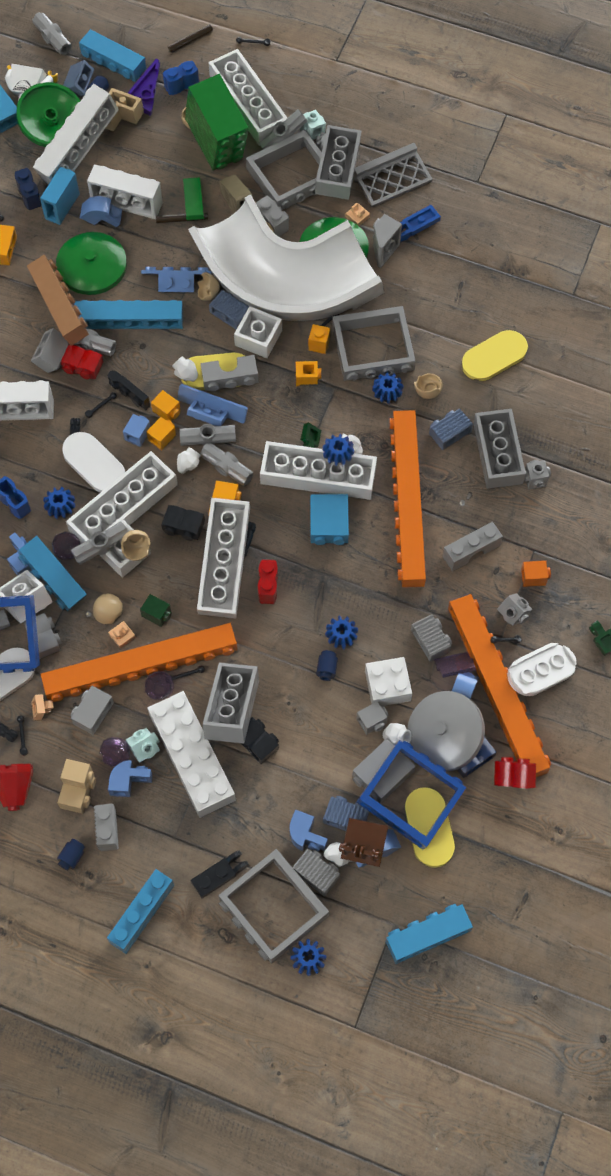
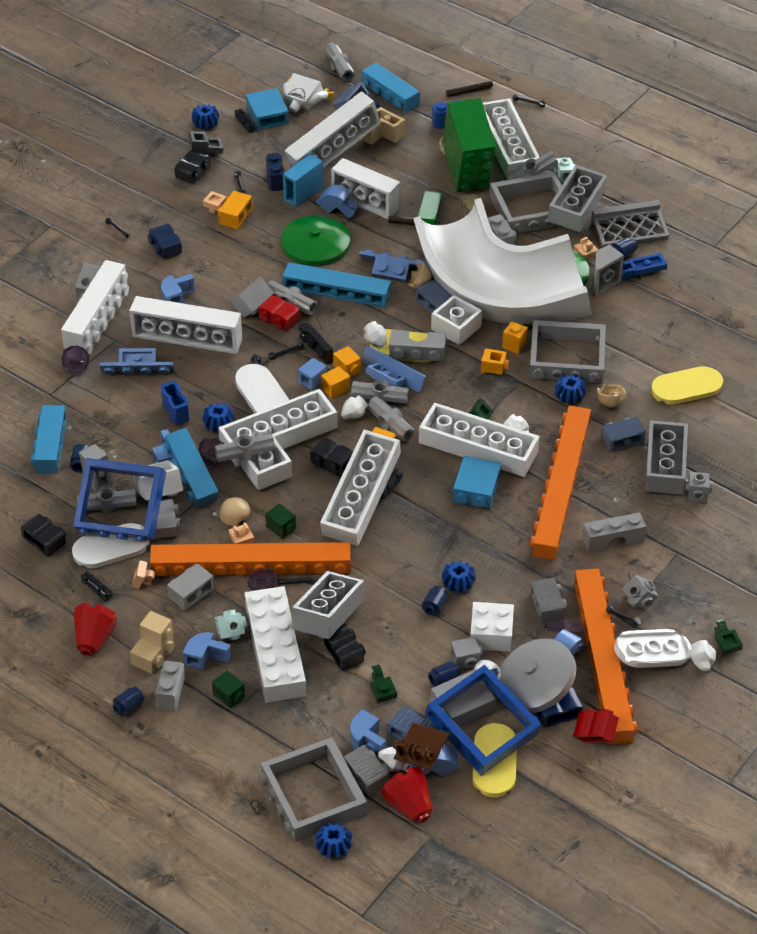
camera: 15 degrees right, 20 degrees down
(23, 751) = (119, 583): black hinge -> none
(44, 111) = (307, 111): green dish -> none
(58, 300) = (273, 257): medium nougat brick -> none
(114, 751) = (200, 622): clear purple hair -> none
(135, 545) = (278, 454): tan hair -> none
(140, 911) = (179, 762): dark azure brick -> none
(146, 87) = (415, 115): dark purple wing -> none
(162, 816) = (228, 689): none -> dark green brick
(217, 875) = (256, 754): black hinge -> none
(267, 581) = (398, 519): red brick -> none
(304, 774) = (382, 687): none -> dark green plate
(338, 449) = (502, 420): blue gear -> none
(358, 747) = (443, 673): none -> dark blue brick
(366, 892) = (409, 794): none -> red cone
(394, 205) = (626, 246): none -> dark blue brick
(428, 933) = (463, 848): dark azure brick -> none
(535, 573) = (671, 568): orange brick -> none
(588, 664) = (703, 655): none -> white rock

